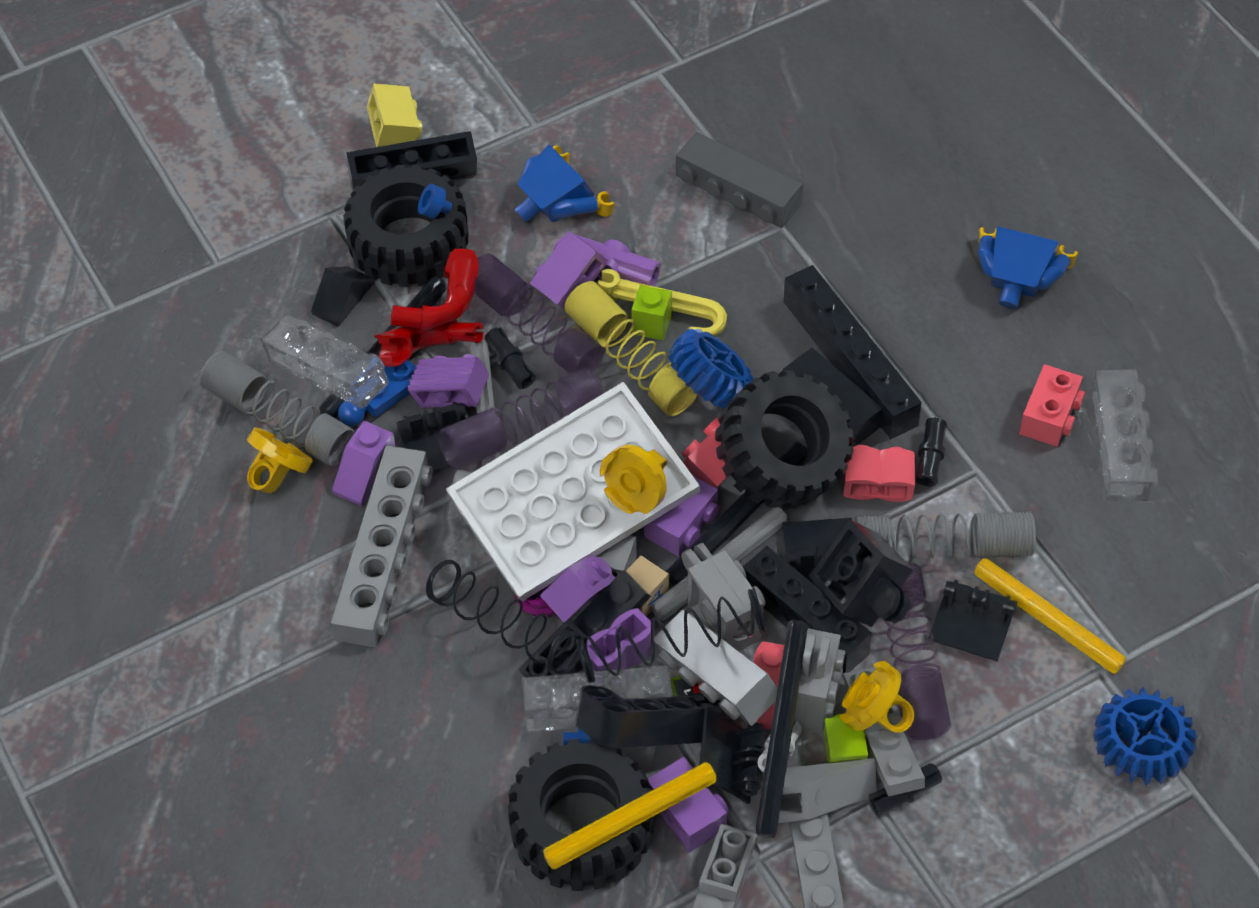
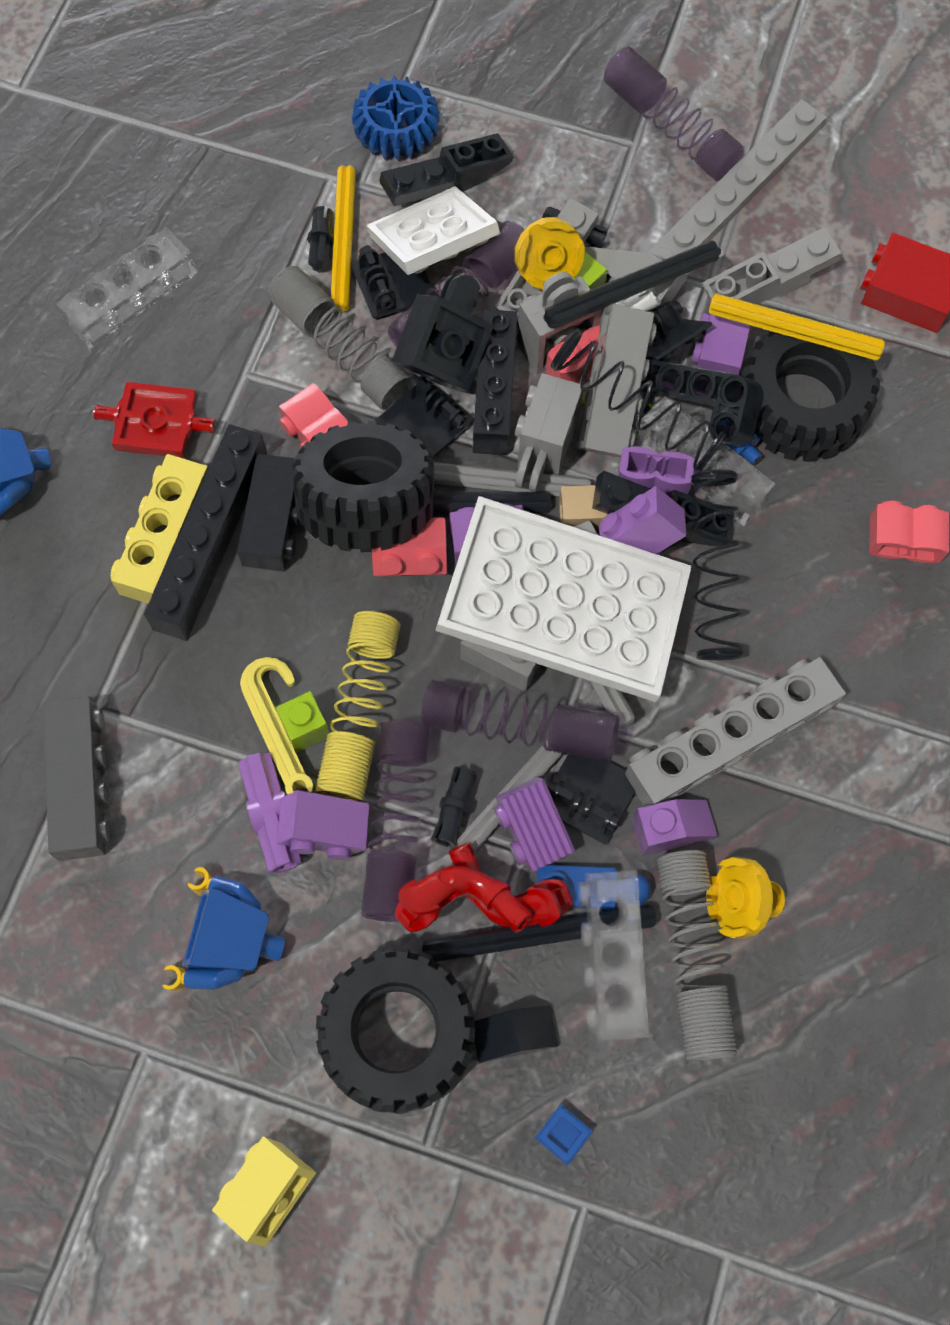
camera: 135 degrees left, 15 degrees up
(262, 277) = (563, 1134): none -> blue tile
(398, 793) = (908, 532): none -> coral brick
(433, 201) = (373, 990): blue tile -> none
(448, 154) = (312, 1106): black brick -> none
(634, 478) = (528, 525): yellow tile -> none
(709, 366) = (333, 609): blue gear -> none
(885, 326) = (174, 477): none -> light yellow brick
(931, 452) = (258, 406): black pin -> none
(980, 382) = (154, 419): none -> red plate
(987, 662) = (433, 230): none -> white plate
(1049, 728) = (458, 165): none -> black slope
(1051, 406) = (138, 352): coral brick -> none
(1059, 595) = (320, 238): none -> black axle

